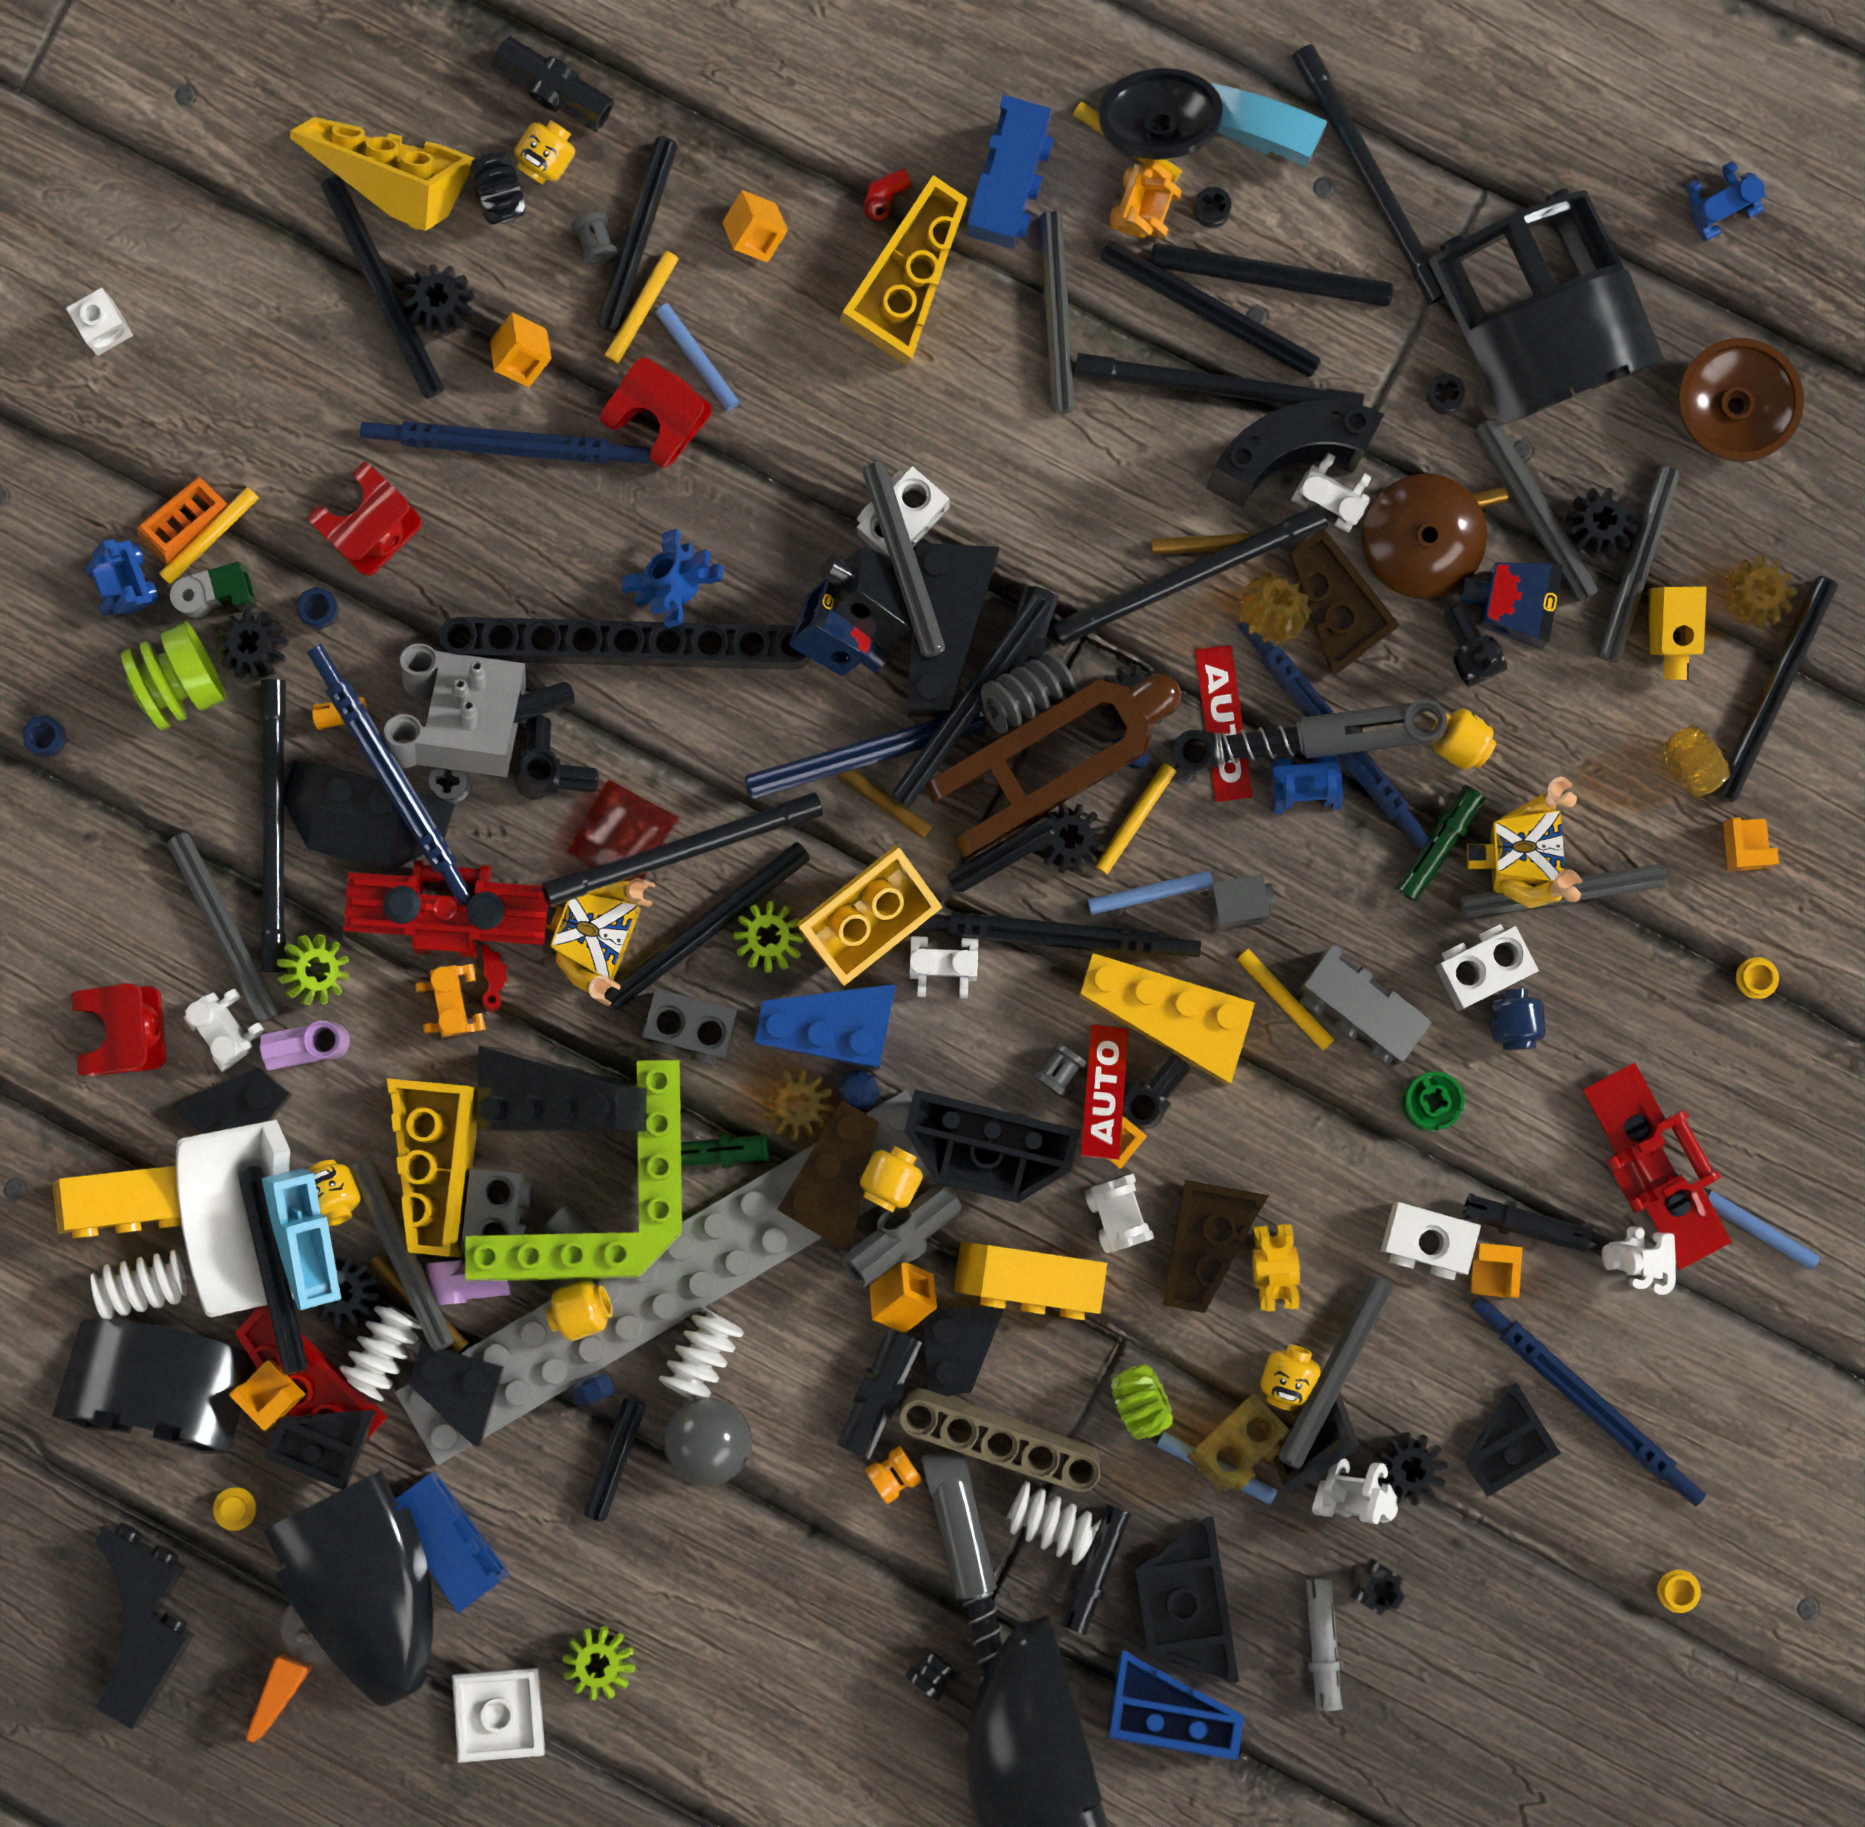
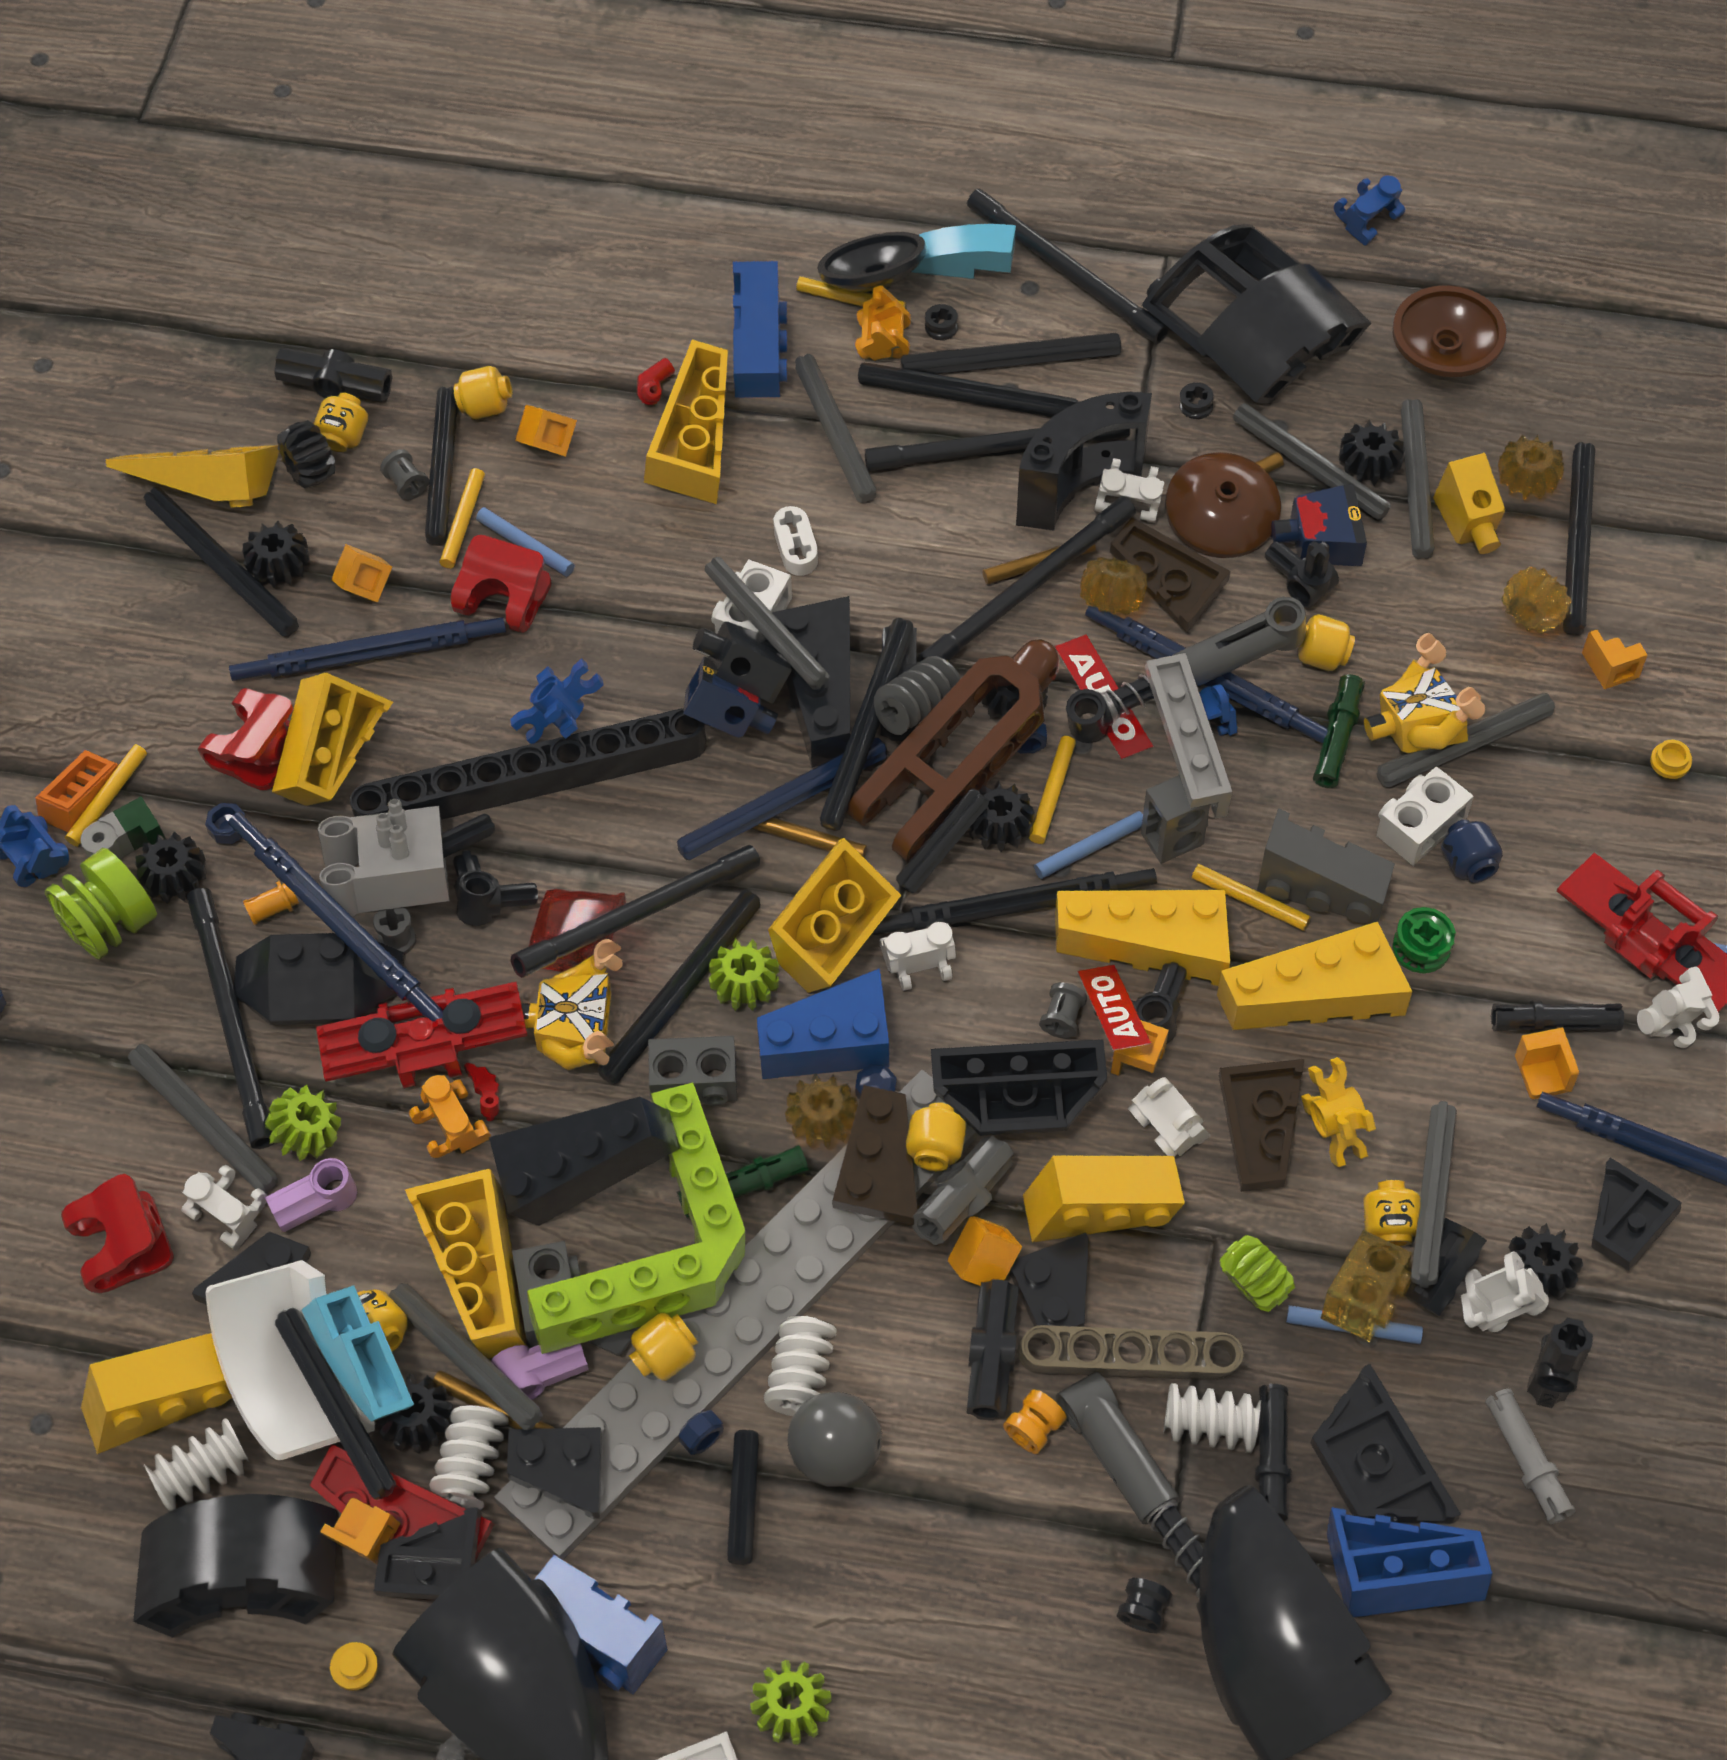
camera: 15 degrees left, 25 degrees down
(432, 550) = (324, 737): none -> yellow wedge
(701, 158) = (482, 392): none -> yellow head
(982, 443) = (788, 542): none -> white beam
(1275, 833) = (1189, 733): none -> light grey fence
(1322, 1120) = (1317, 981): none -> yellow wedge
(1455, 1237) = (1491, 1041): white brick -> none

